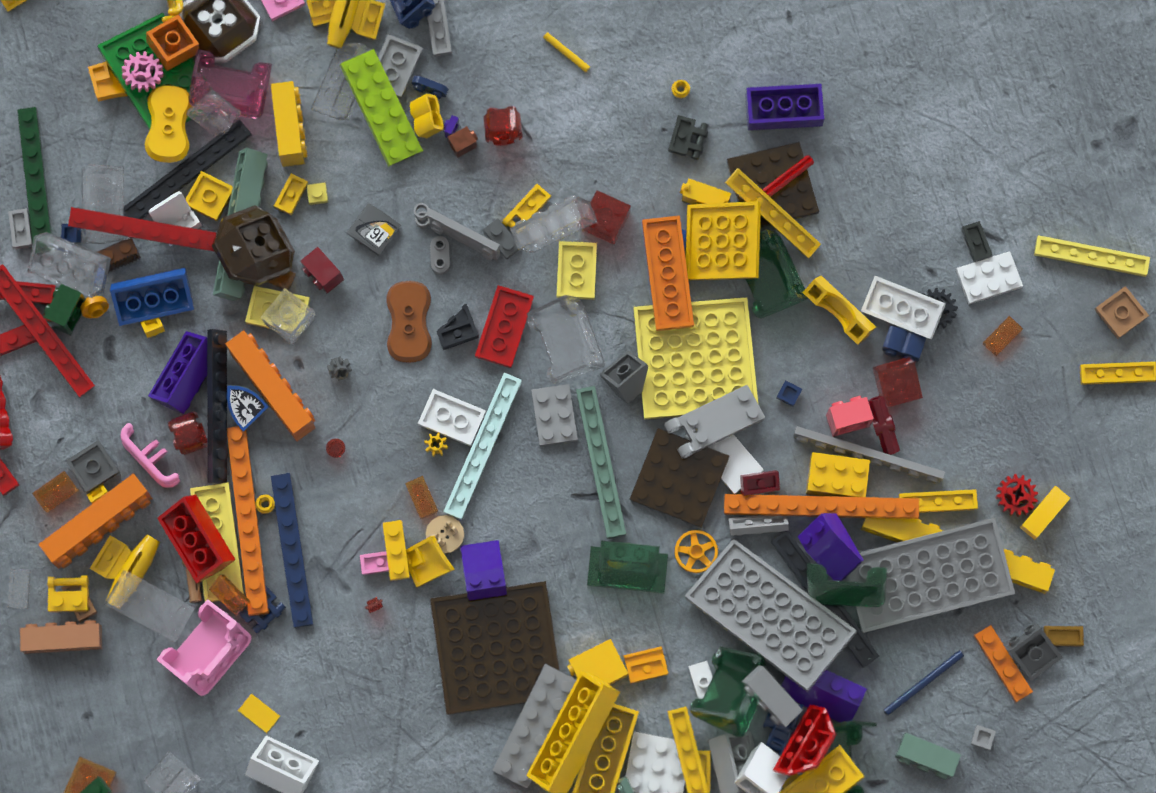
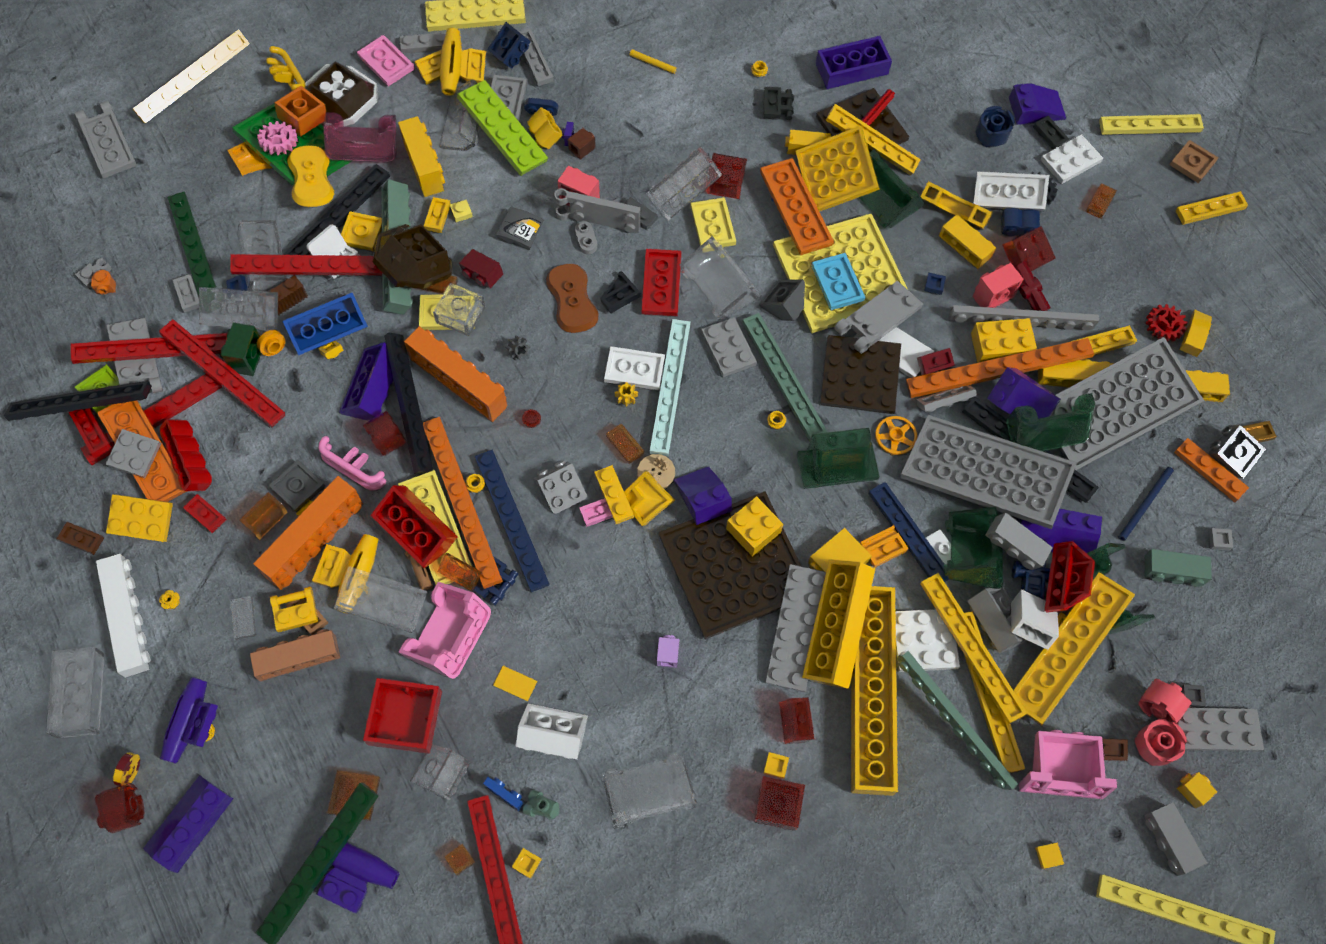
camera: 15 degrees left, 10 degrees down
(148, 722) = (402, 715): none -> red container
(214, 113) = (350, 159): clear plate -> none
(244, 405) = (435, 395): shield -> none
(346, 527) = (560, 486): none -> light grey bracket
(374, 604) = (605, 550): clear red plate -> none
(408, 718) = (668, 651): none -> lavender brick
(443, 200) = (578, 182): none -> coral brick
(502, 125) = (614, 122): clear red brick -> none
(522, 617) = (754, 526): none -> yellow brick
(528, 205) = (654, 178): yellow plate -> none
(582, 501) = (776, 415): none -> yellow plate
(674, 653) = (908, 530): none -> dark blue plate
(685, 371) = (838, 281): none -> medium azure plate
(839, 353) = (967, 241): none -> yellow brick
(923, 218) = (994, 126): none -> dark blue brick
(974, 202) = (1034, 103): none -> dark purple slope

